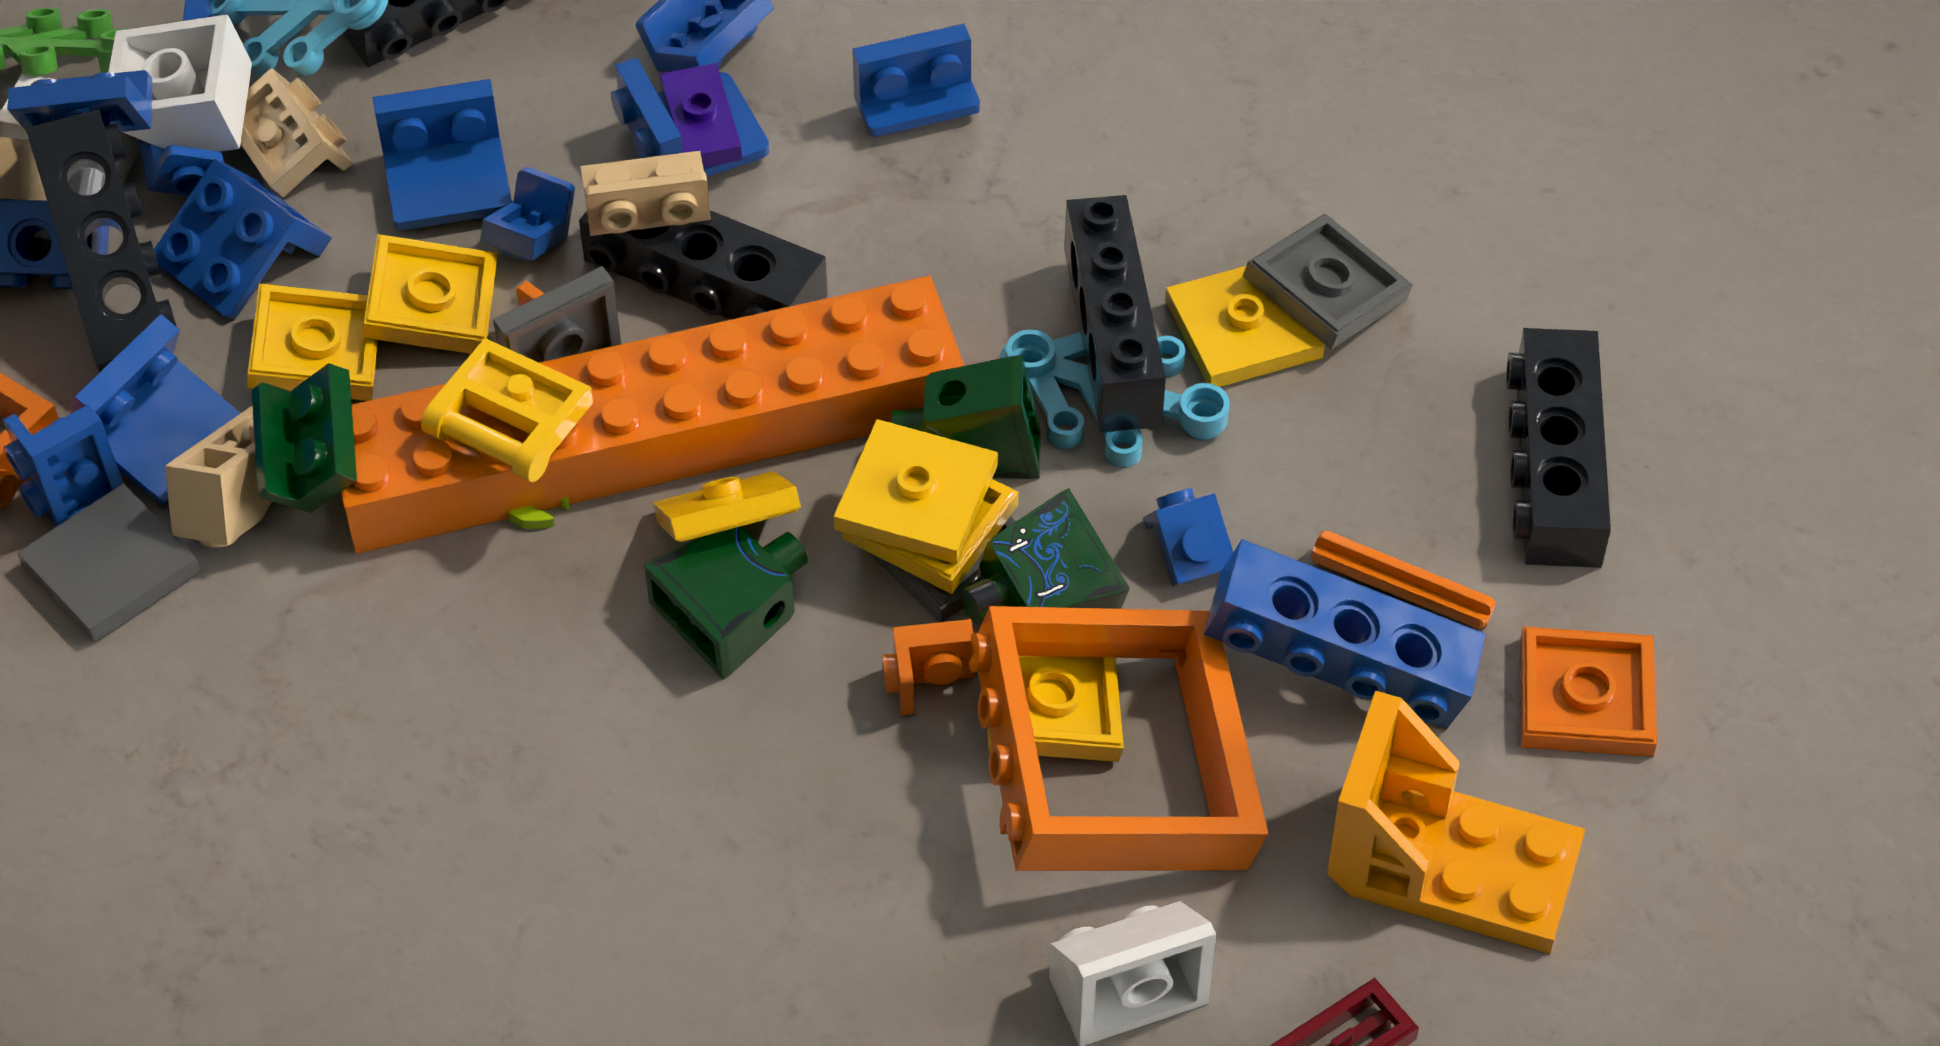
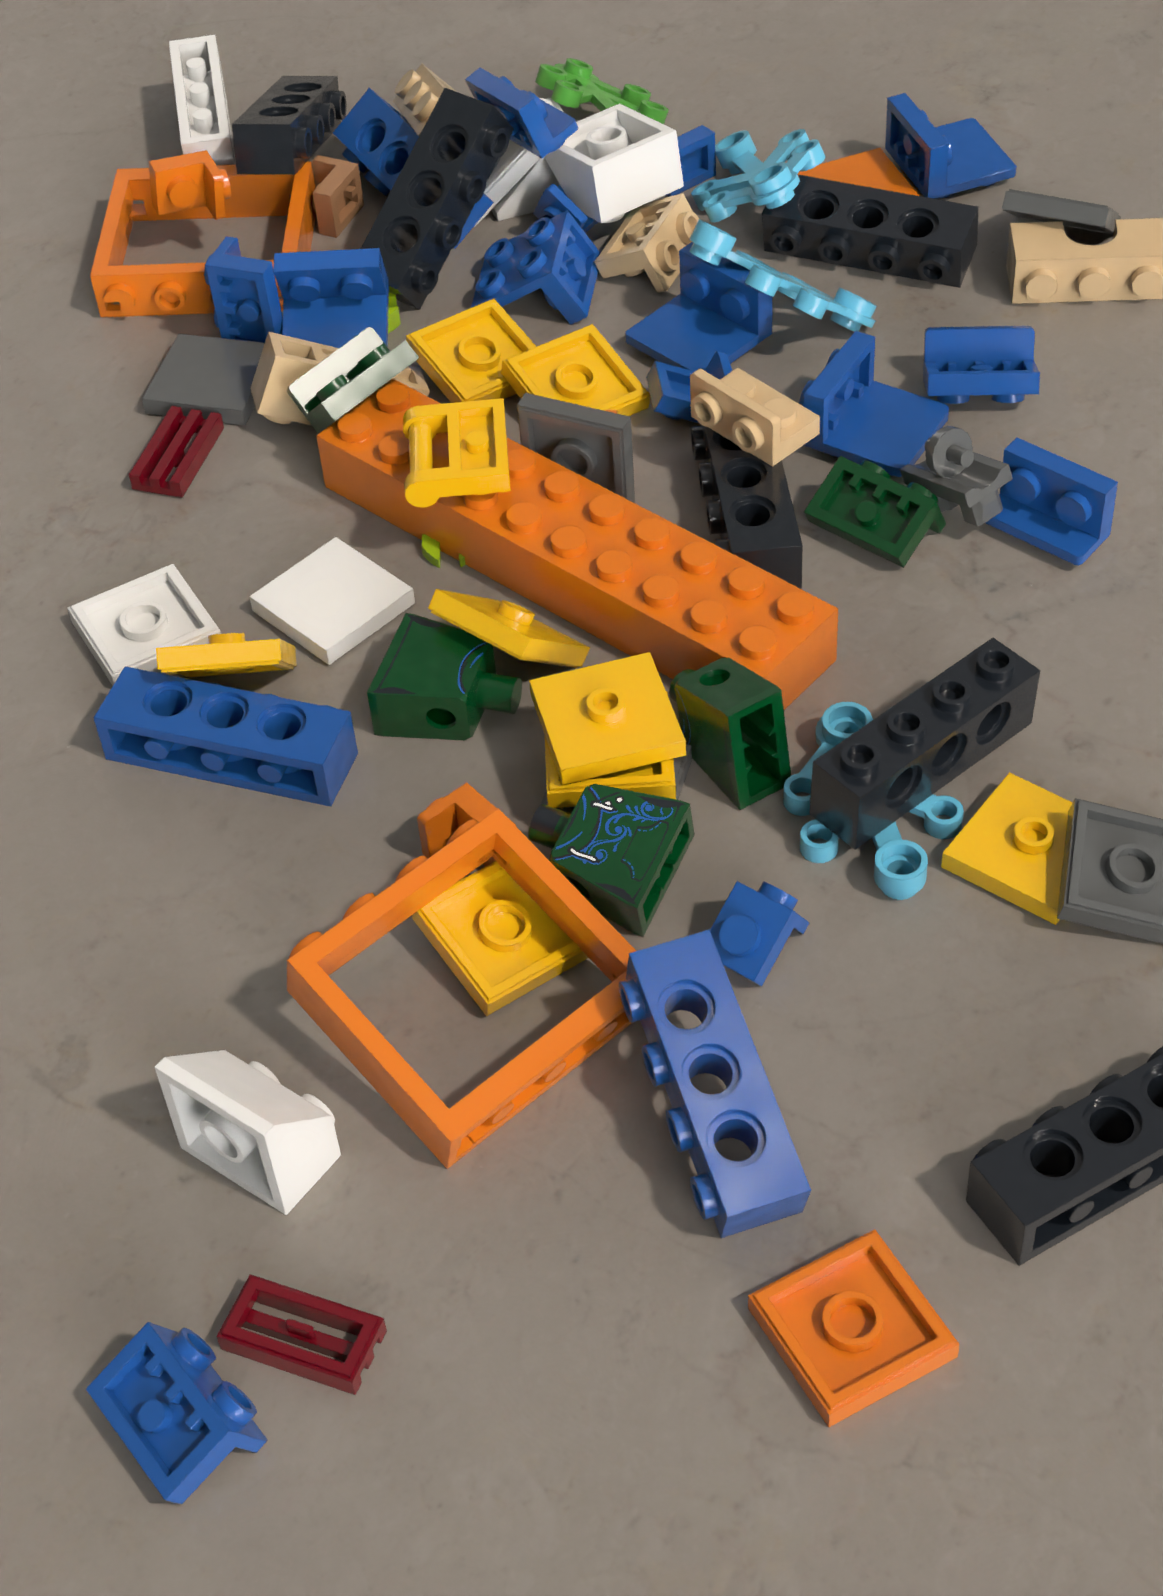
camera: 60 degrees right, 5 degrees down
(167, 608) = (167, 451): none -> dark red tile
(422, 783) = (138, 617): none -> white tile
(531, 622) = (332, 600): none -> white tile
(534, 57) = (848, 308): none -> medium azure plant
(569, 726) = (225, 656): none -> yellow plate
(635, 811) = (227, 735): none -> blue brick
(702, 113) = (882, 414): dark purple plate -> none
(806, 191) = (874, 510): none -> dark green bracket
(835, 114) = (960, 476): none -> dark grey hips
(1403, 580) = (849, 1112): orange axle -> none
(1439, 852) = (563, 1280): light orange bracket -> none

